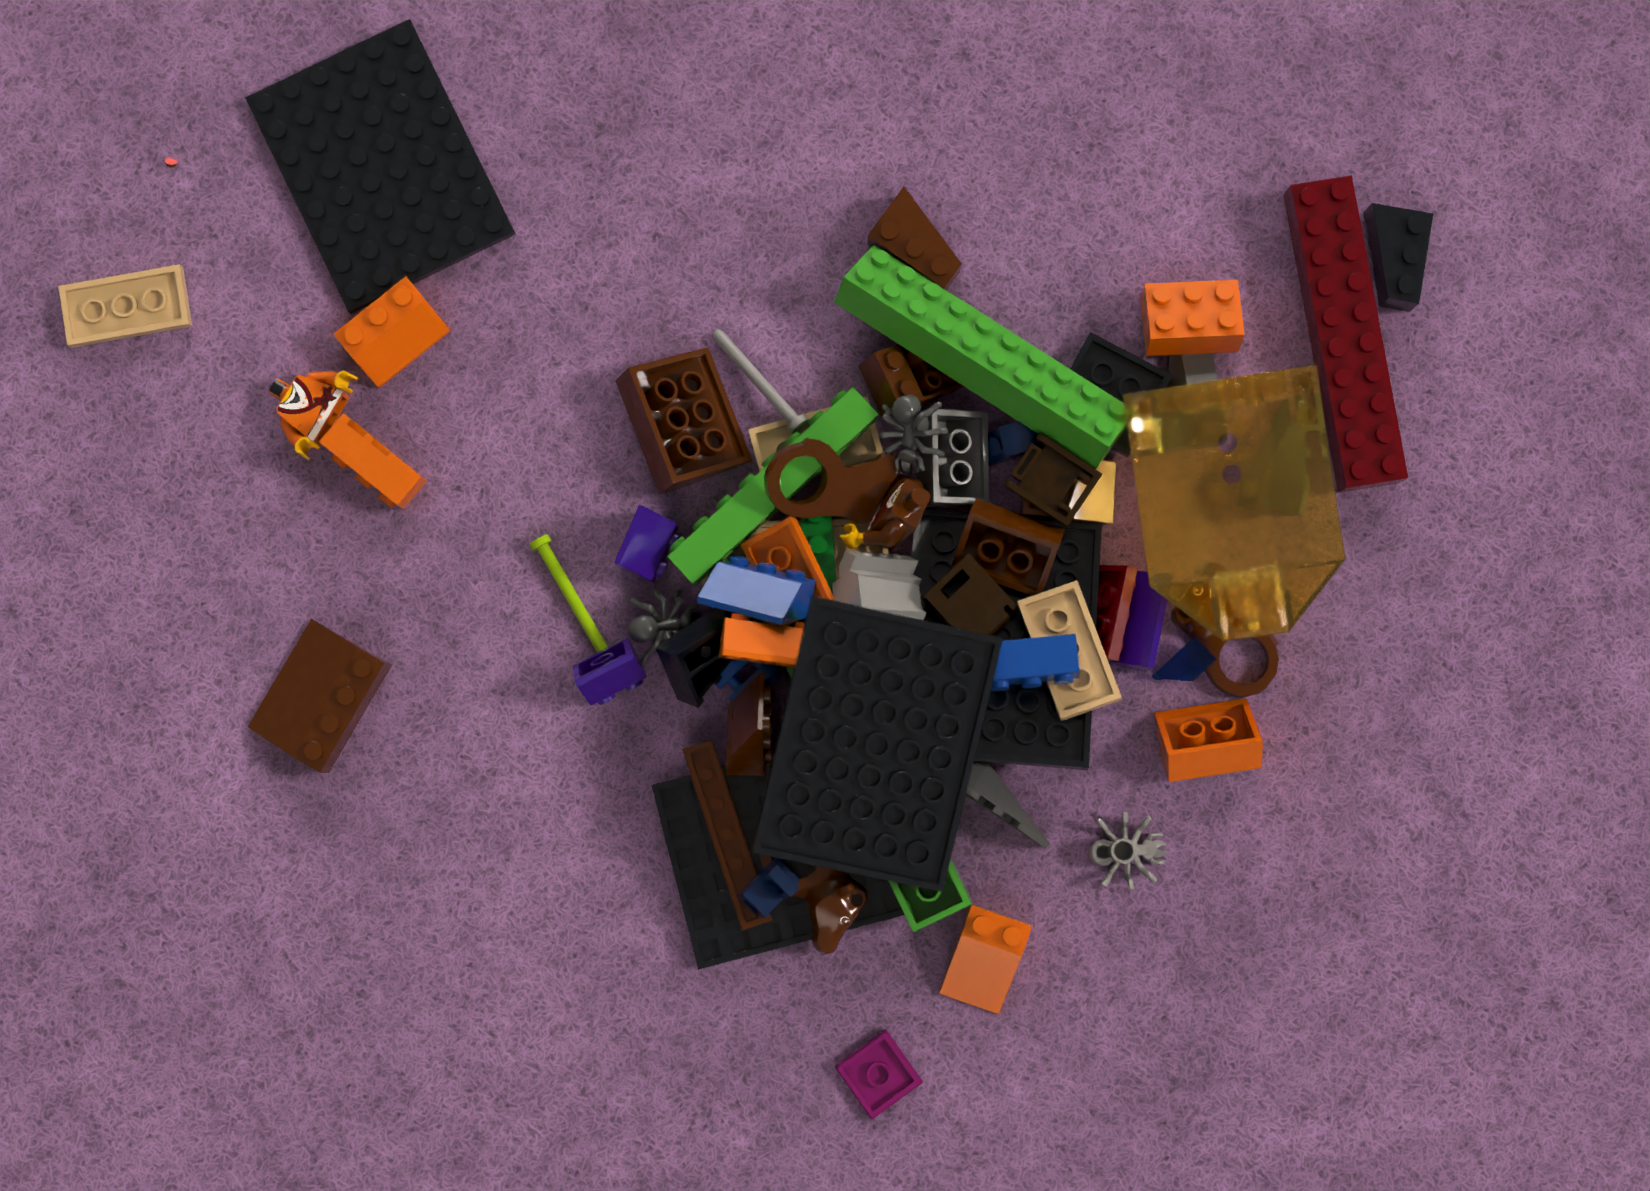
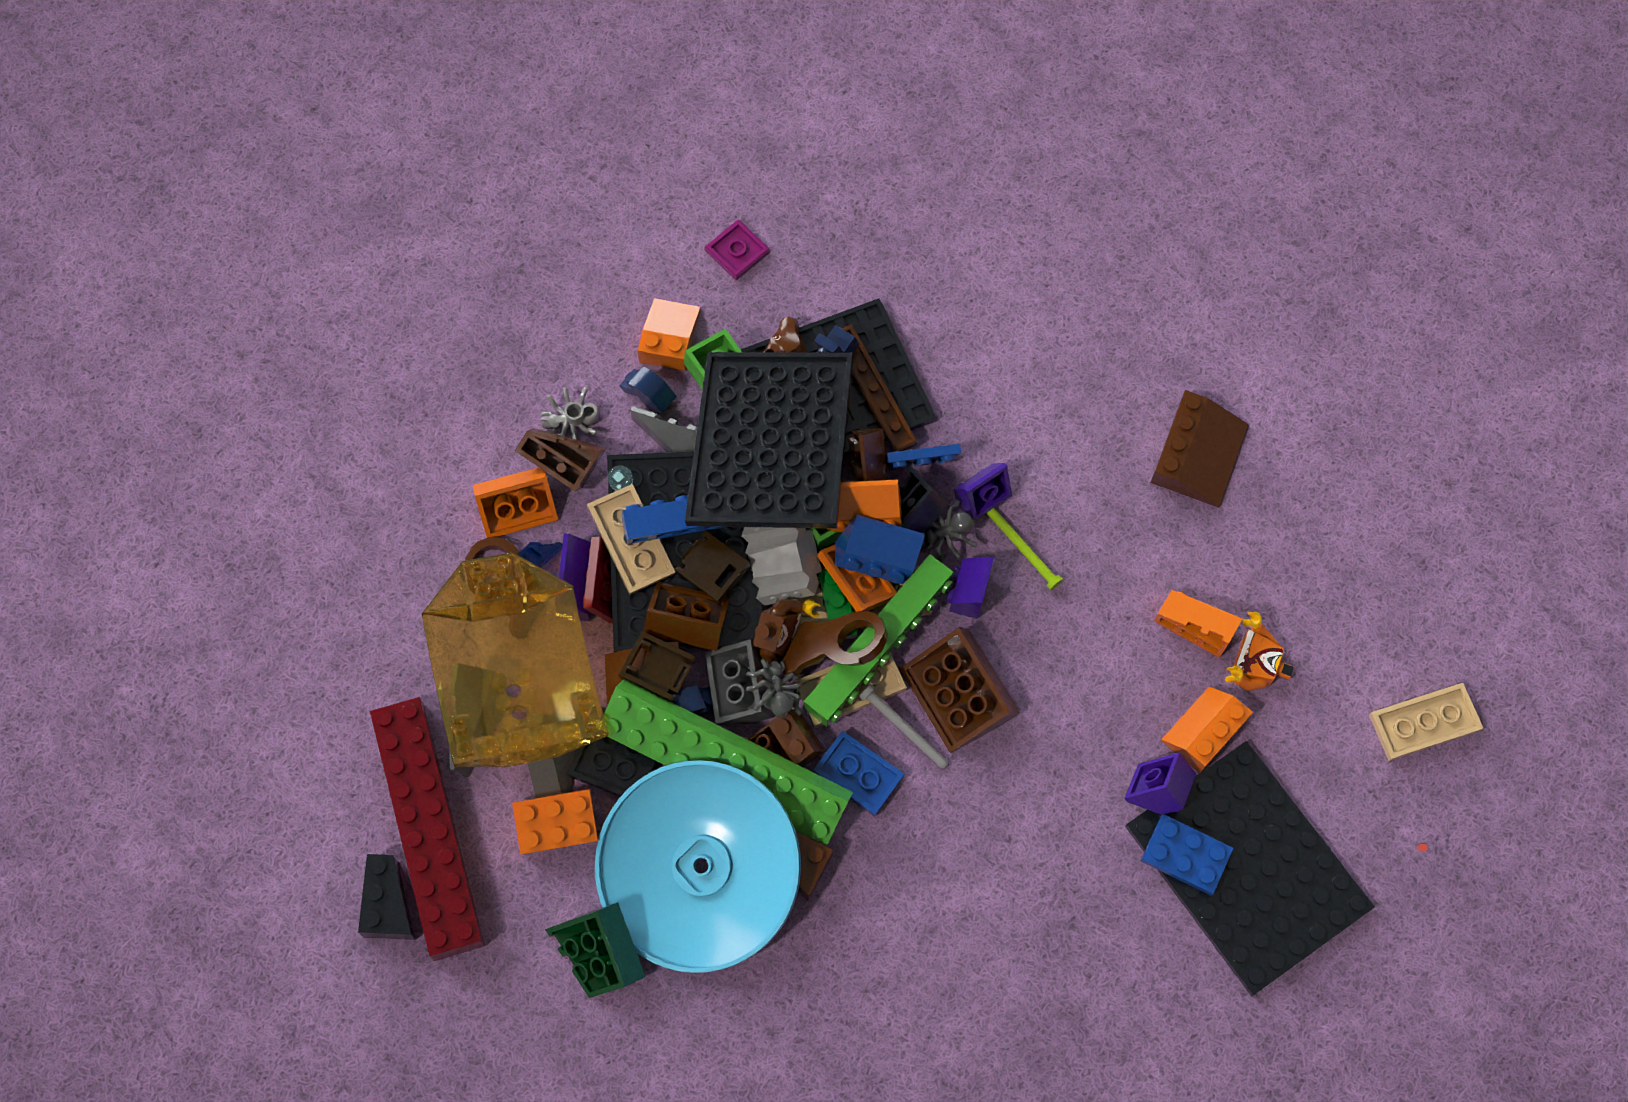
camera: 165 degrees right, 15 degrees down
(451, 180) = (1186, 854): none -> blue plate
(463, 264) = (1161, 784): none -> dark purple slope
(678, 727) = (923, 456): none -> blue plate
(822, 334) = (859, 771): none -> blue plate
(1022, 874) = (649, 388): none -> dark blue brick
(1059, 198) = (651, 856): none -> medium azure dish
(1075, 733) = (619, 477): none -> clear light blue tile
(1146, 788) = (560, 456): none -> reddish brown wedge
(1152, 164) = (599, 950): none -> dark green wedge

